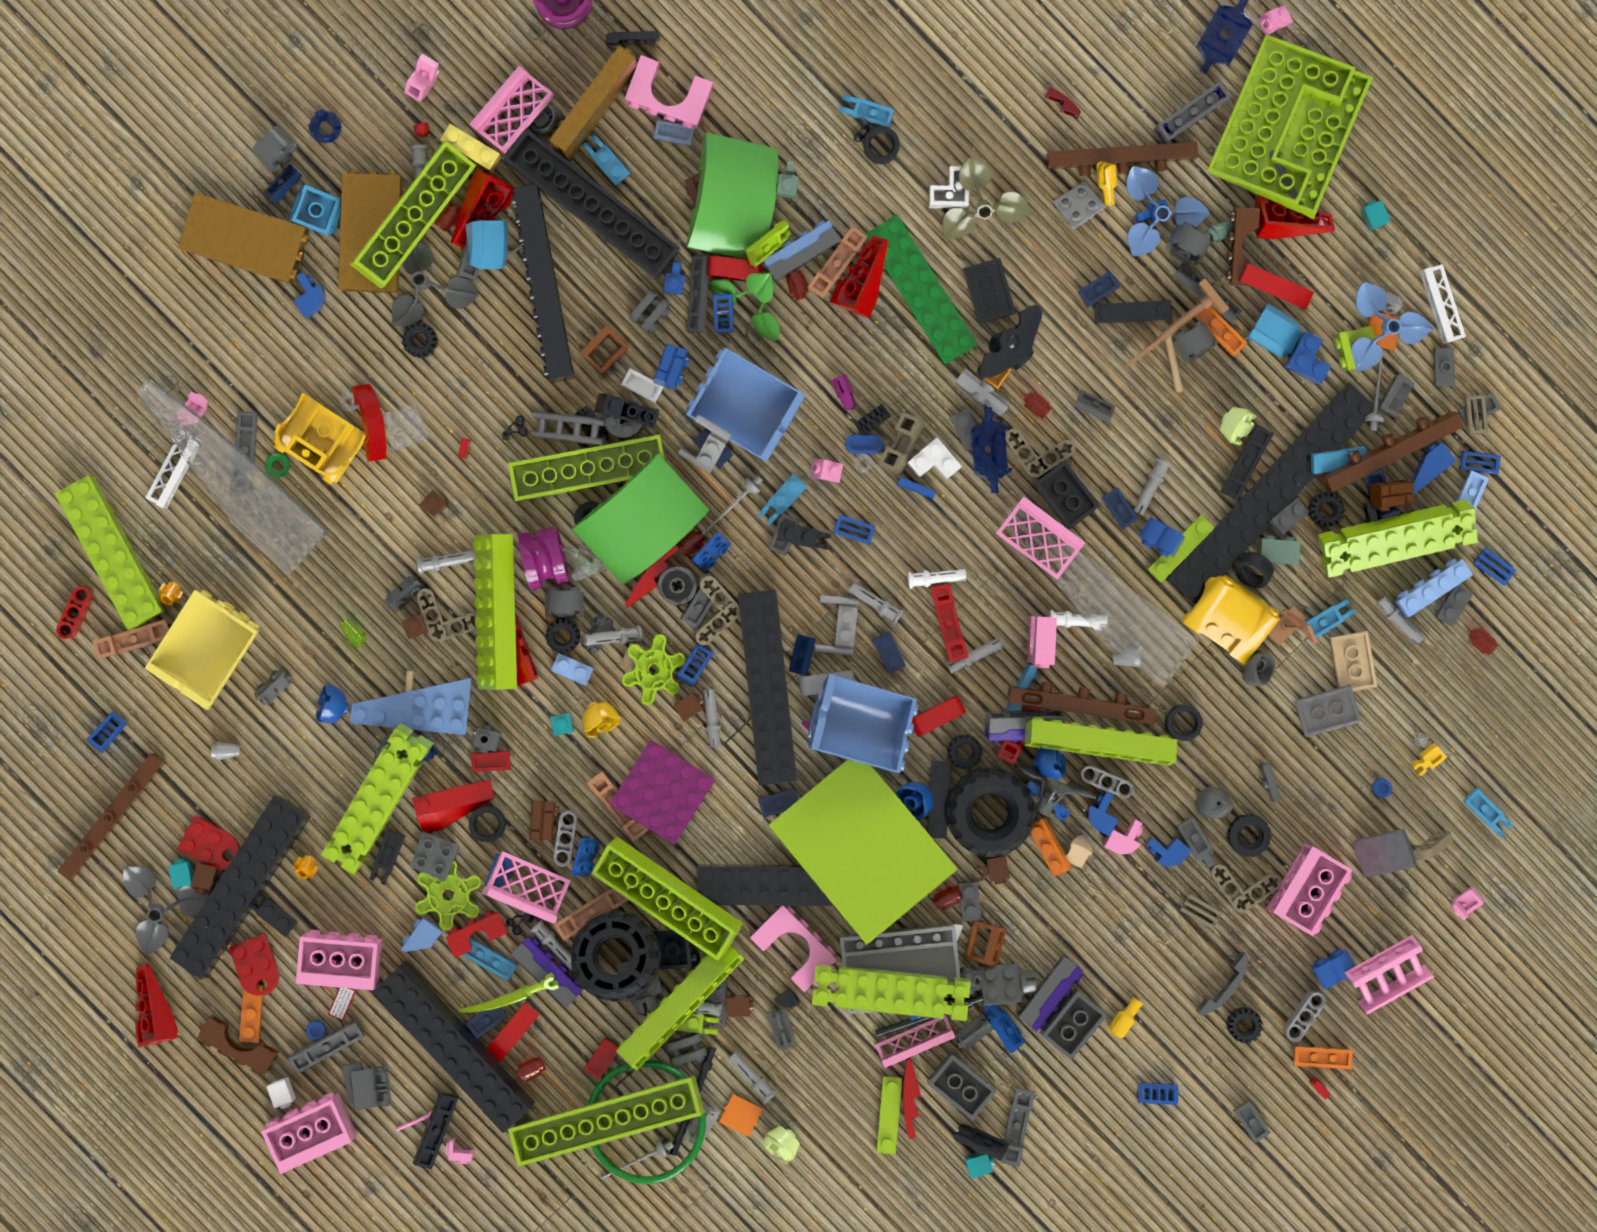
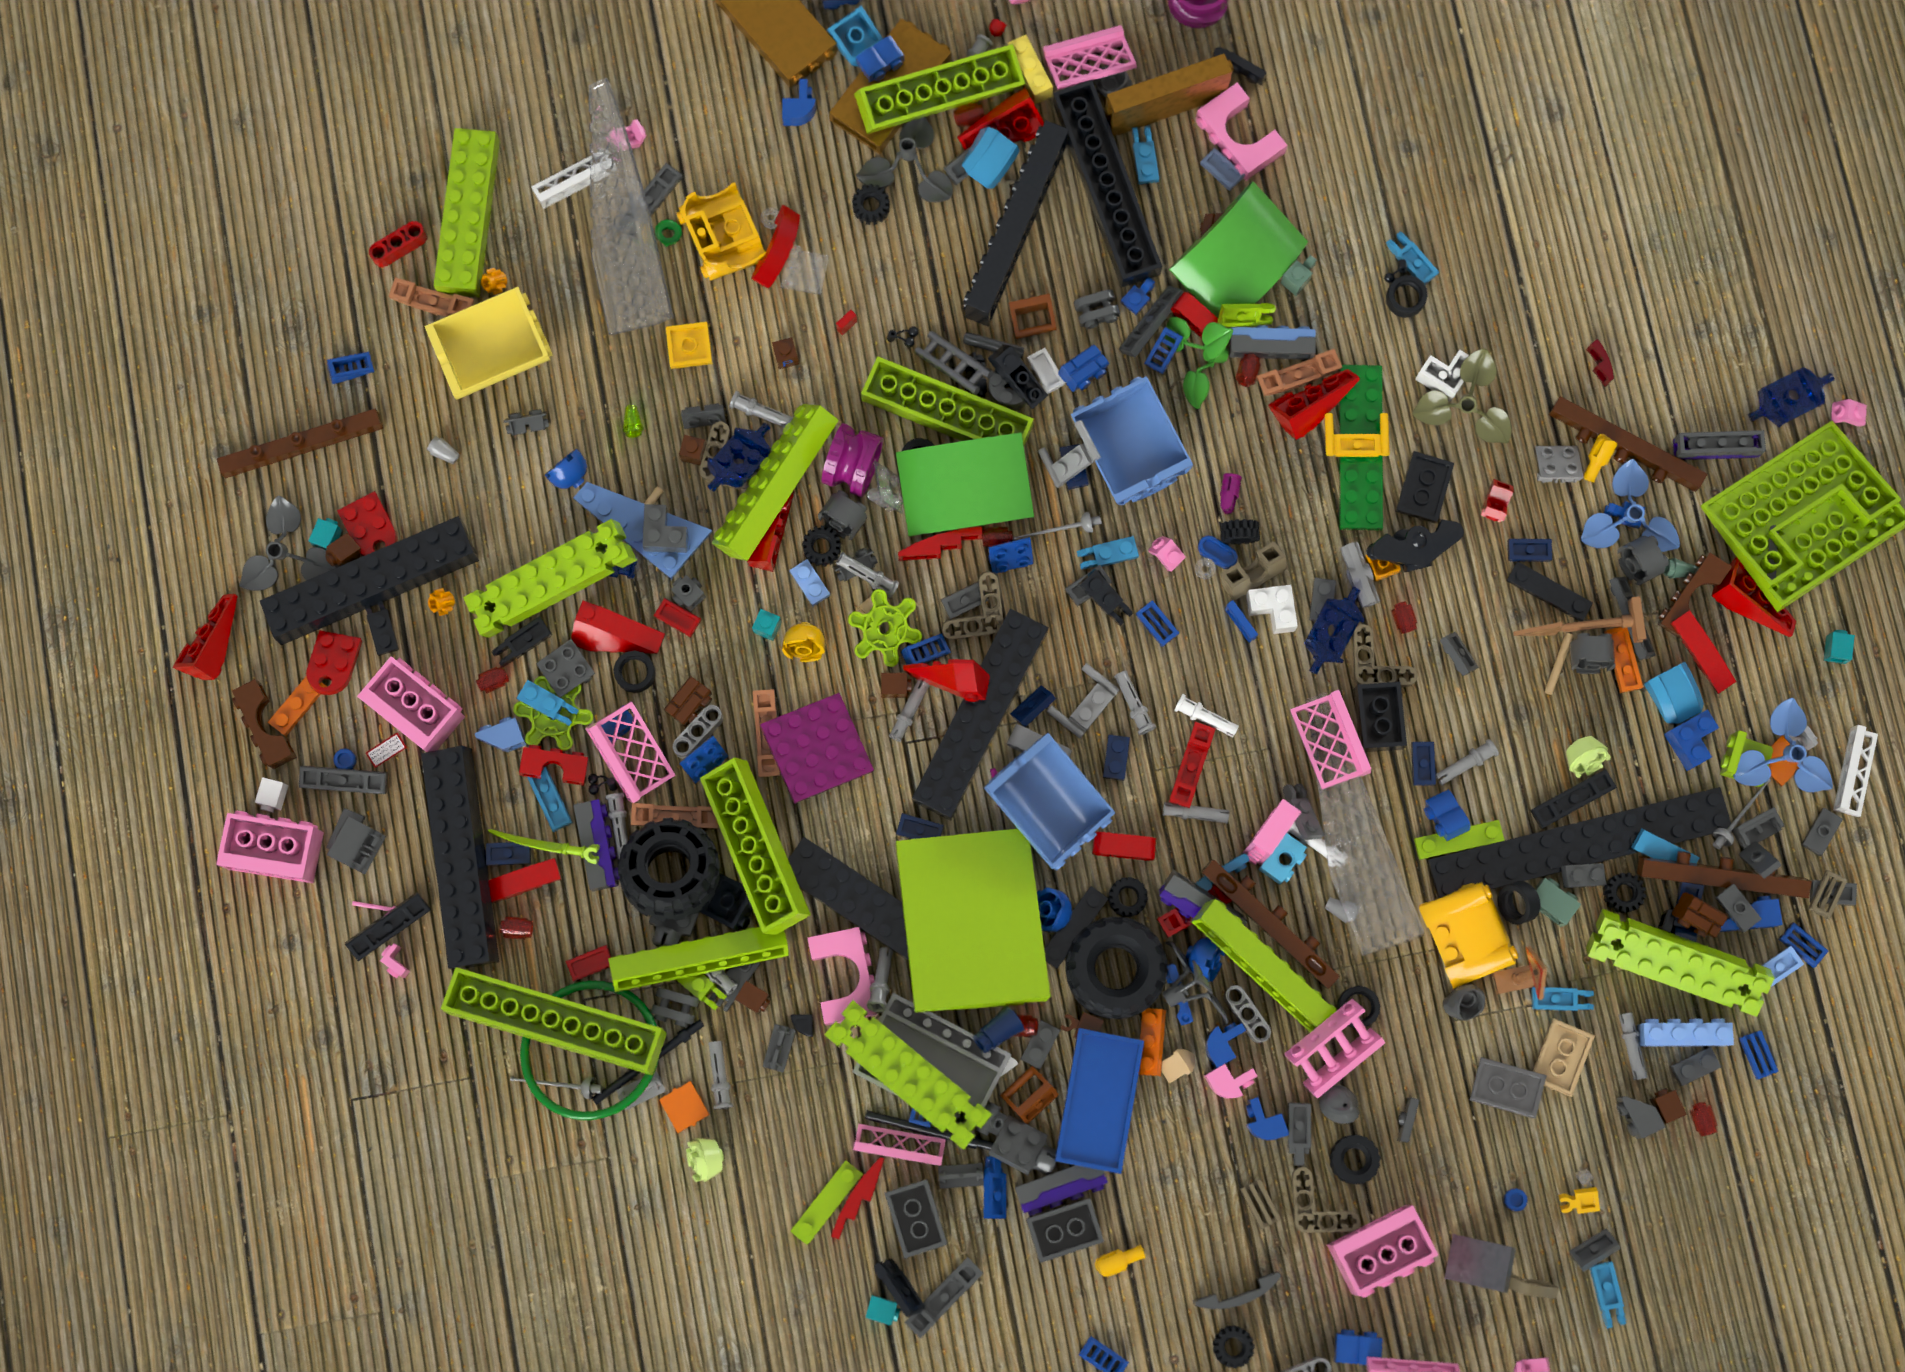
camera: 35 degrees right, 10 degrees down
(349, 220) = (880, 58): none -> blue brick
(355, 545) = (688, 345): none -> yellow plate
(385, 899) = (492, 679): none -> clear red brick
(433, 711) = (659, 536): none -> dark grey brick
(437, 891) = (545, 702): none -> dark azure hinge
(451, 596) = (743, 445): none -> clear blue plate
(589, 391) = (989, 343): none -> dark grey axle
(680, 596) = (961, 555): dark grey brick -> none
(738, 674) = (957, 677): none -> red wedge
(827, 940) = (879, 987): none -> light grey pin
(918, 292) = (1357, 444): none -> yellow plate
(934, 916) = (998, 1030): none -> dark blue plant
(1039, 916) = (1099, 1101): none -> blue tile
(1051, 267) = (1497, 501): none -> brick
(1053, 605) = (1307, 821): none -> dark grey hinge
(1068, 659) = (1274, 869): none -> medium azure brick
(1197, 771) = (1343, 1062): none -> bright pink fence
(1411, 421) = (1759, 859): none -> dark grey plate
(1417, 469) = (1738, 908): none -> dark grey plate
(1437, 669) = (1641, 1117): none -> dark grey slope
(1451, 648) = (1668, 1105): none -> reddish brown brick
(1460, 787) = (1594, 1250): none -> dark grey plate

